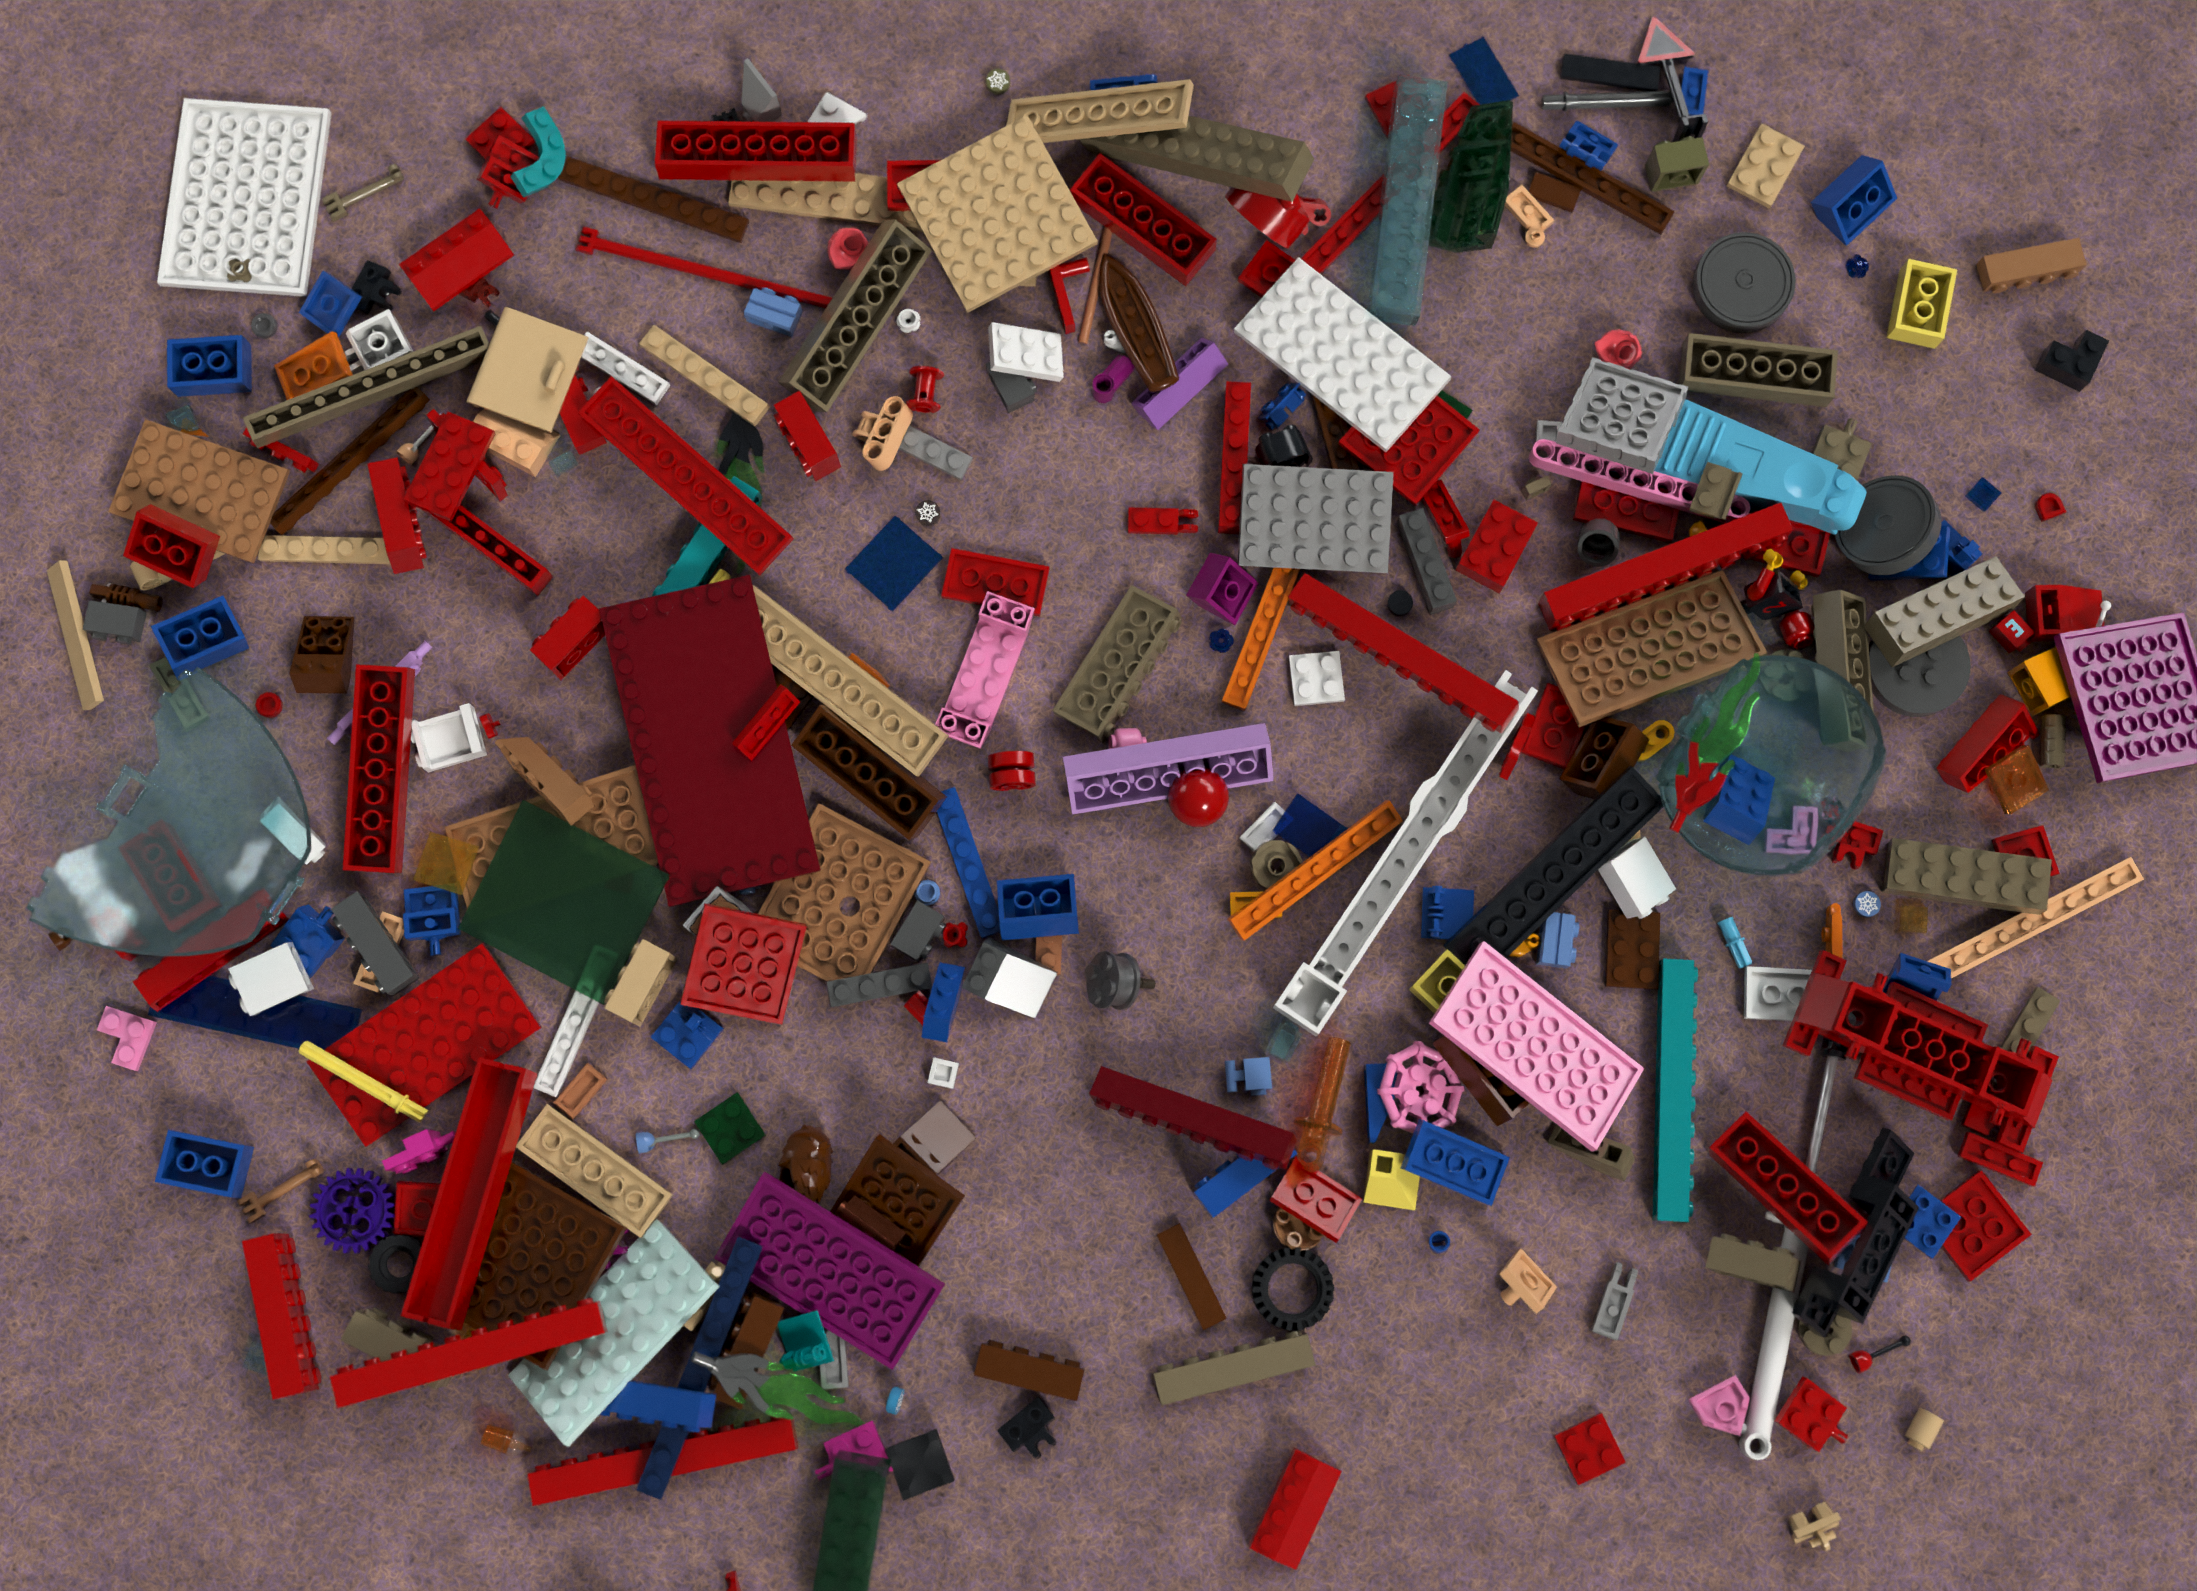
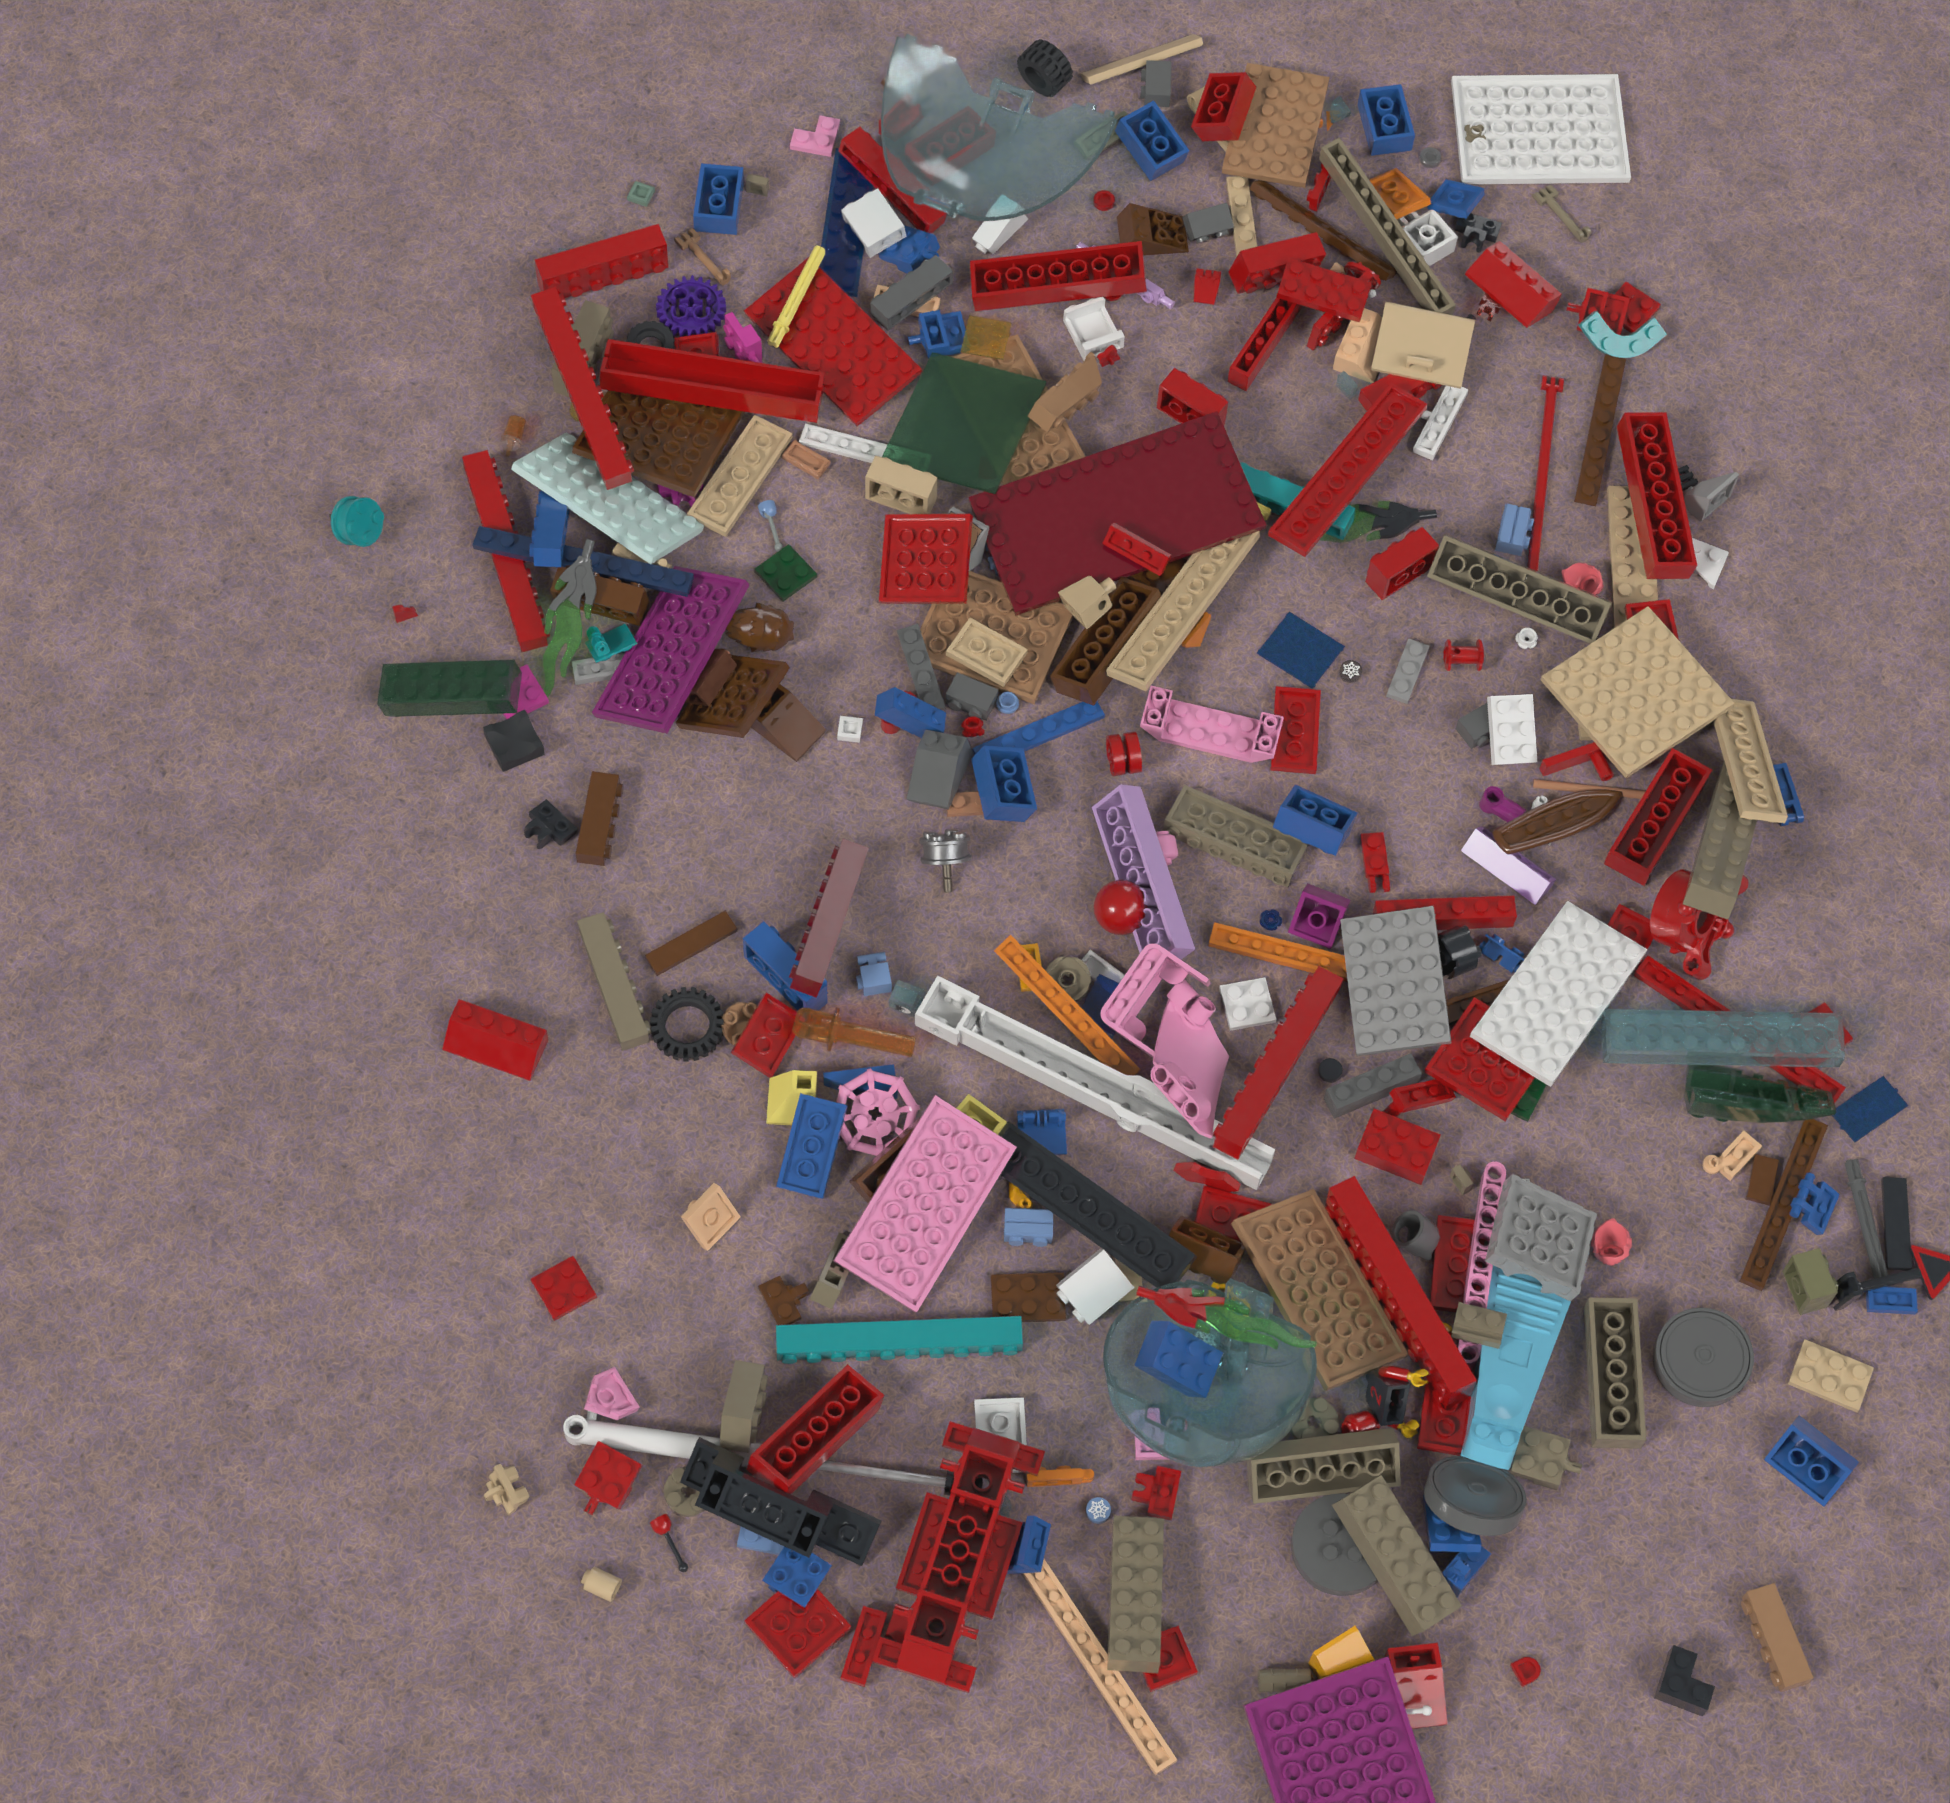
camera: 80 degrees right, 15 degrees down
(77, 750) = (1044, 68): none -> black tyre
(126, 596) = (1179, 90): reddish brown hinge -> none
(177, 1259) = (641, 193): none -> sand green tile
(187, 1115) = (757, 184): none -> dark tan plate
(322, 587) = (1208, 222): none -> dark grey brick
(408, 602) = (1206, 286): none -> red hand
(419, 425) = (1358, 270): none -> red wheel
(687, 1034) = (861, 532): blue hinge -> none
(704, 375) = (1445, 482): tan plate -> none
(819, 785) = (1088, 599): none -> tan torso
(868, 908) = (986, 652): none -> tan plate
(874, 428) = (1417, 626): light nougat piece -> none
(894, 1400) = (566, 717): dark azure tile -> none
(998, 81) = (1769, 690): olive tile -> none
(1115, 575) = (1315, 820): none -> blue brick
(1332, 810) = (1137, 986): none -> bright pink windscreen
(1391, 746) = (1189, 1058): none -> bright pink panel
(1437, 1237) = (743, 1143): blue hinge -> none
(1614, 1304) = (696, 1300): light grey hinge -> none
(1619, 1210) = (783, 1300): none -> reddish brown hinge
(1735, 942) = (1046, 1388): medium azure axle -> none
(1859, 264) = (1742, 1468): clear blue plate -> none
(1913, 919) = (1088, 1555): clear yellow tile -> none
(1922, 303) = (1713, 1526): light yellow brick -> none
(1983, 494) = (1528, 1604): clear blue tile -> none
(1991, 737) = (1272, 1614): red wedge -> none
(2012, 632) = (1389, 1633): red brick -> none
(2016, 779) = (1239, 1642): clear orange hinge -> none
(2031, 1020) = (998, 1670): dark tan plate -> none

